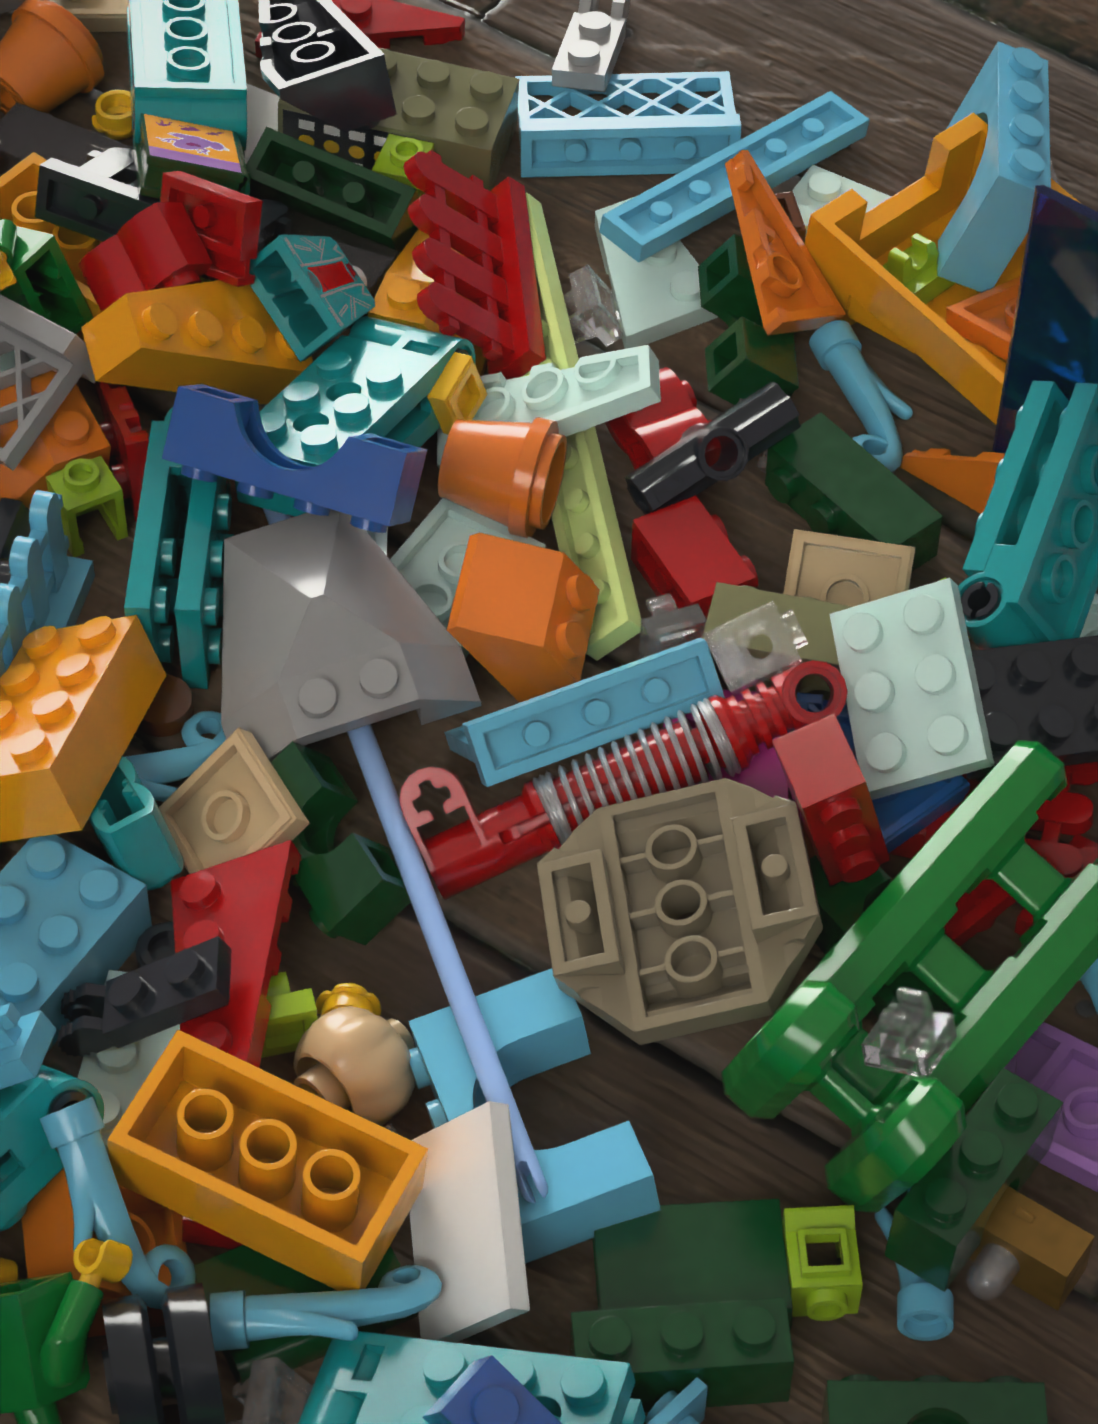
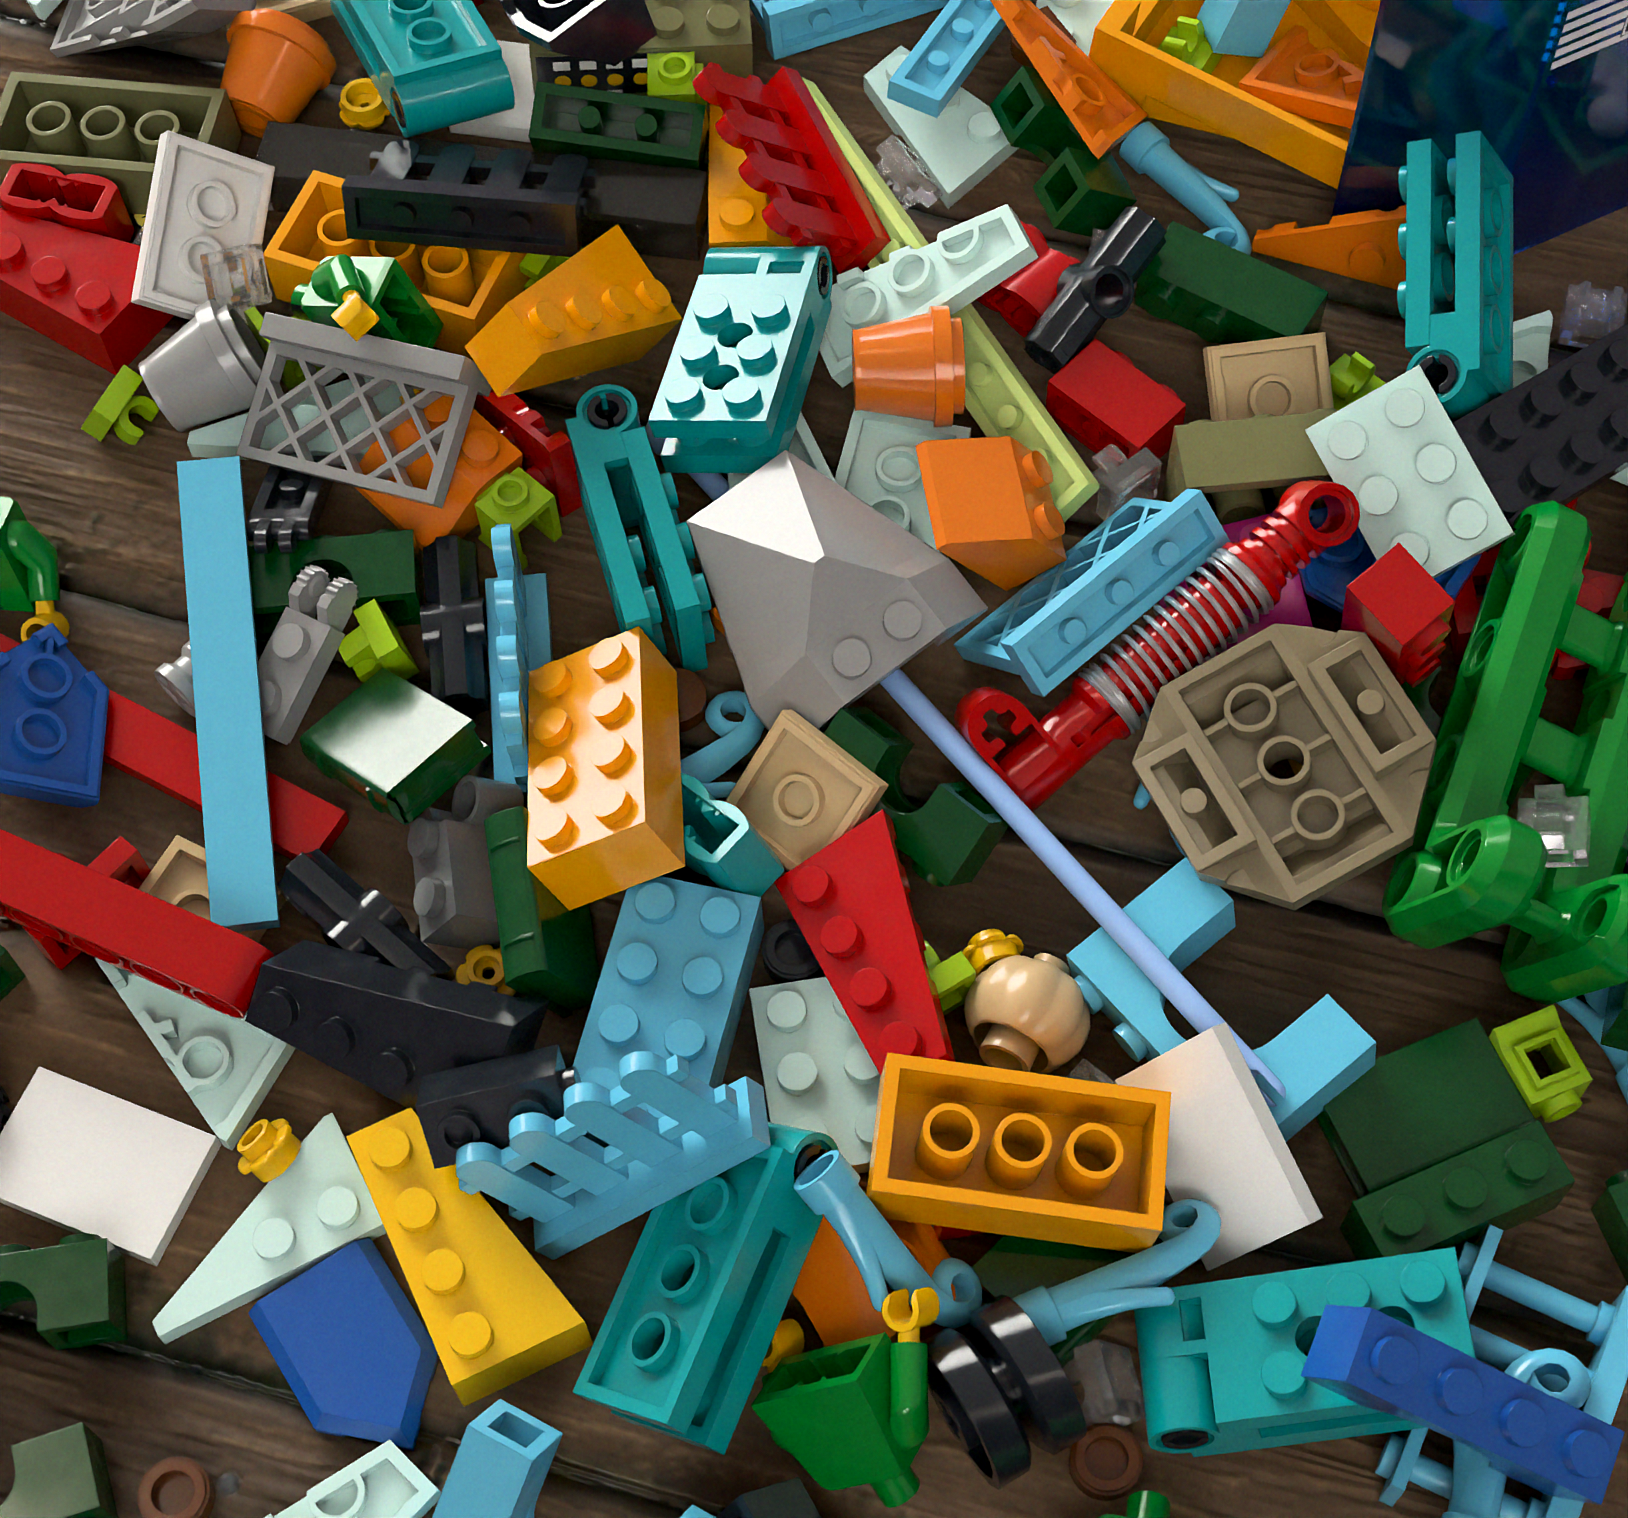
camera: 15 degrees left, 10 degrees up
(146, 999) = (820, 1014): black hinge -> none
(147, 253) = (493, 260): red brick -> none
(188, 148) = (482, 141): piece -> none
(224, 221) = (544, 206): red plate -> none
(224, 436) = (654, 422): blue arch -> none
(309, 290) = (657, 242): teal torso -> none
(457, 392) = (831, 302): yellow tile -> none
(731, 643) = (1276, 484): clear brick -> none

